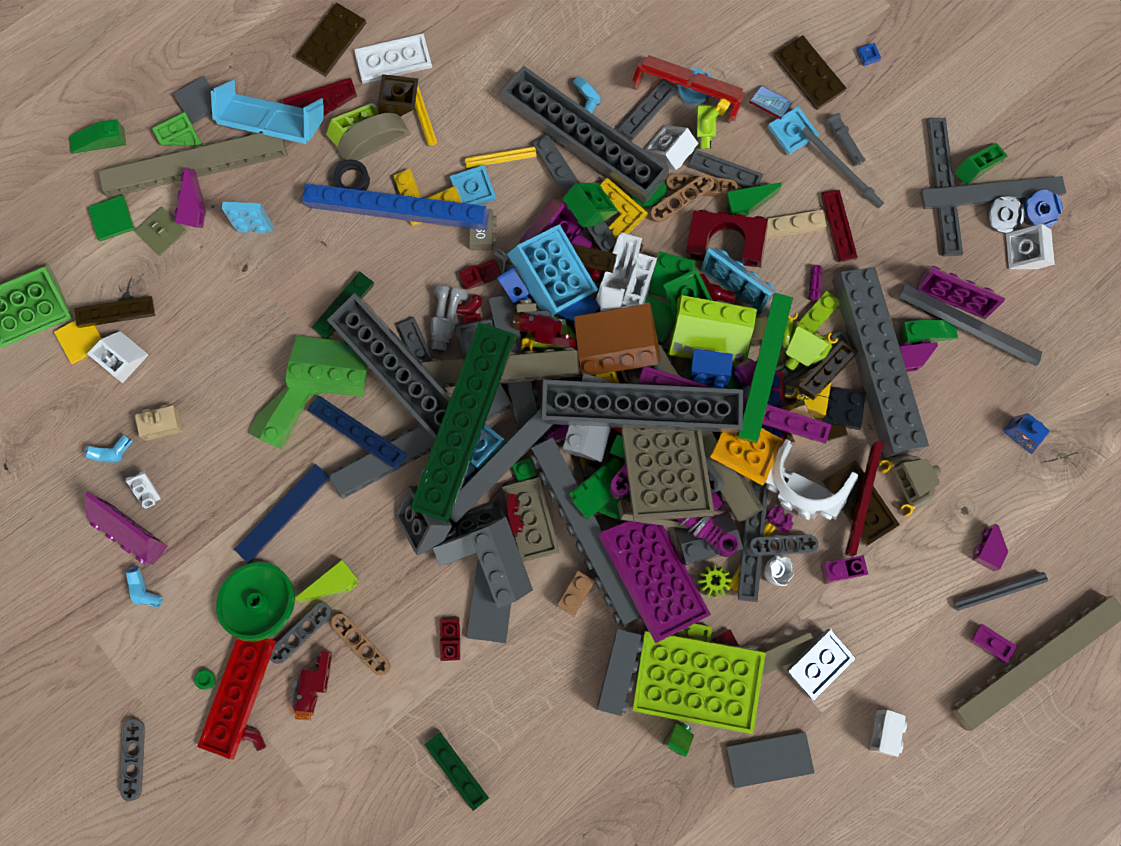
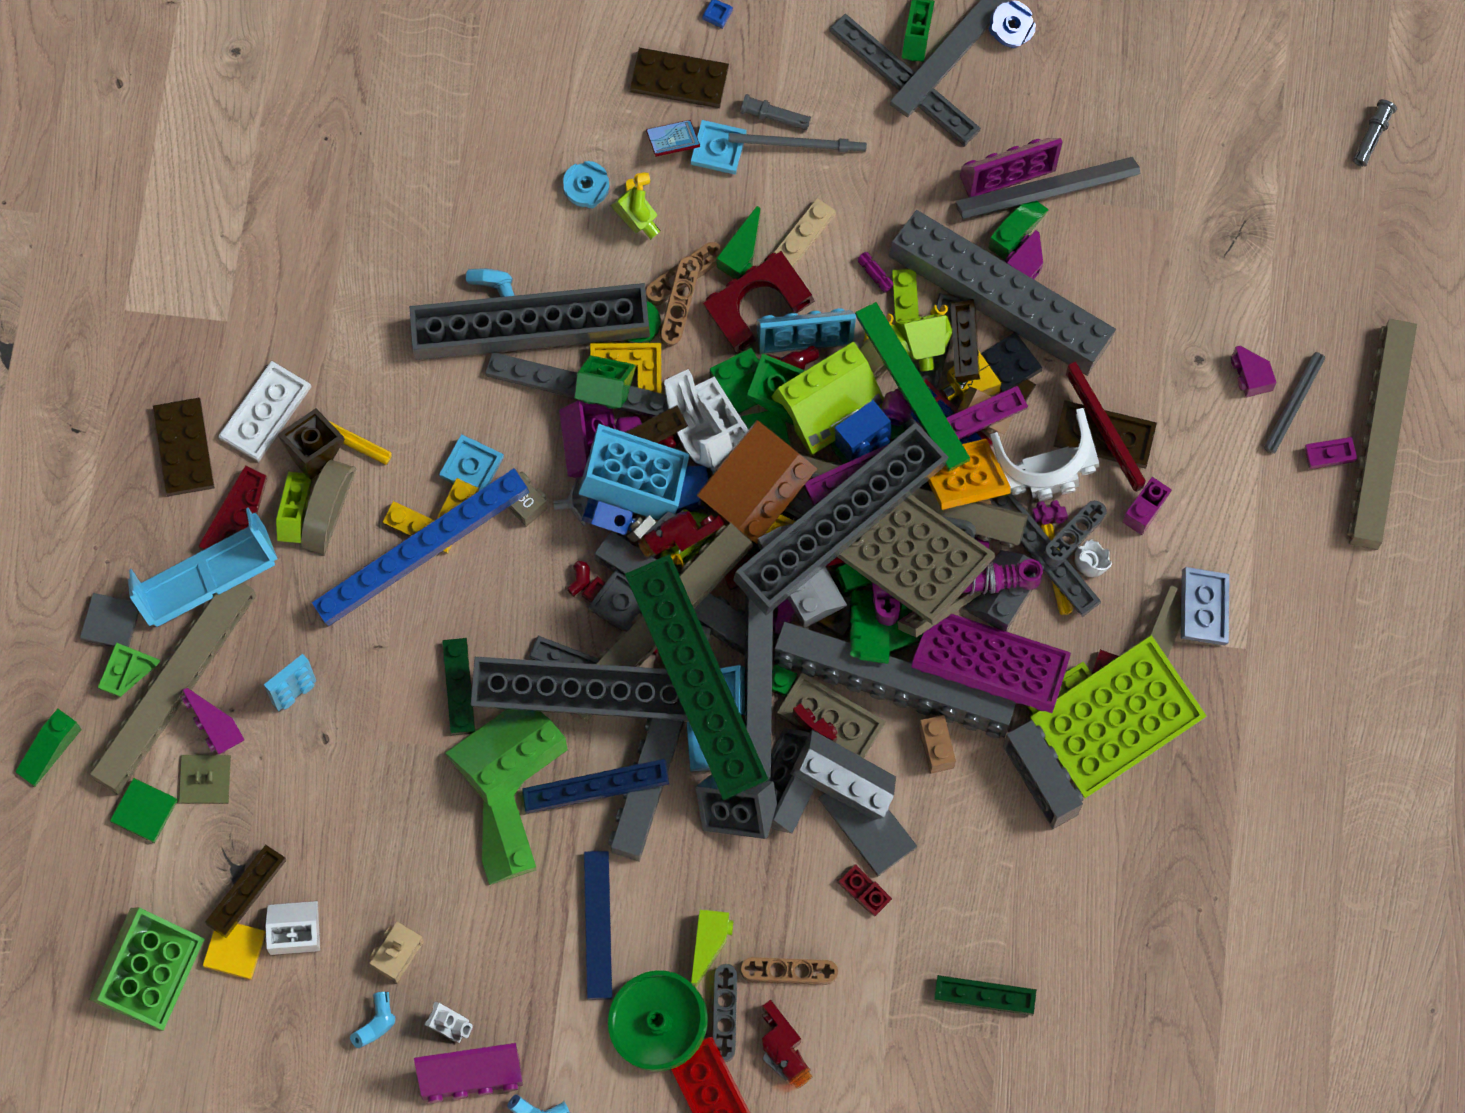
camera: 45 degrees left, 5 degrees down
(352, 165) = (333, 546): black tyre -> none
(444, 328) = (576, 621): light grey piece -> none
(480, 275) = (560, 540): dark red slope -> none
(499, 157) = (467, 413): yellow axle -> none
(647, 110) = (562, 246): dark grey tile -> none
(672, 146) = (620, 260): white slope -> none
(679, 739) = (1149, 783): green slope -> none
(686, 78) = (576, 184): red piece -> none
(708, 578) = (1037, 622): lime gear -> none
(724, 169) = (690, 239): dark grey tile -> none
(770, 760) = (1241, 729): dark grey tile -> none
(839, 226) = (845, 200): dark red tile -> none
(888, 733) = (1316, 611): white slope -> none
(916, 479) = (1133, 369): dark tan torso -> none
(1005, 214) = (984, 58): tile -> none
(1026, 431) = (1186, 241): blue torso -> none
(1030, 248) = (1034, 70): white slope -> none

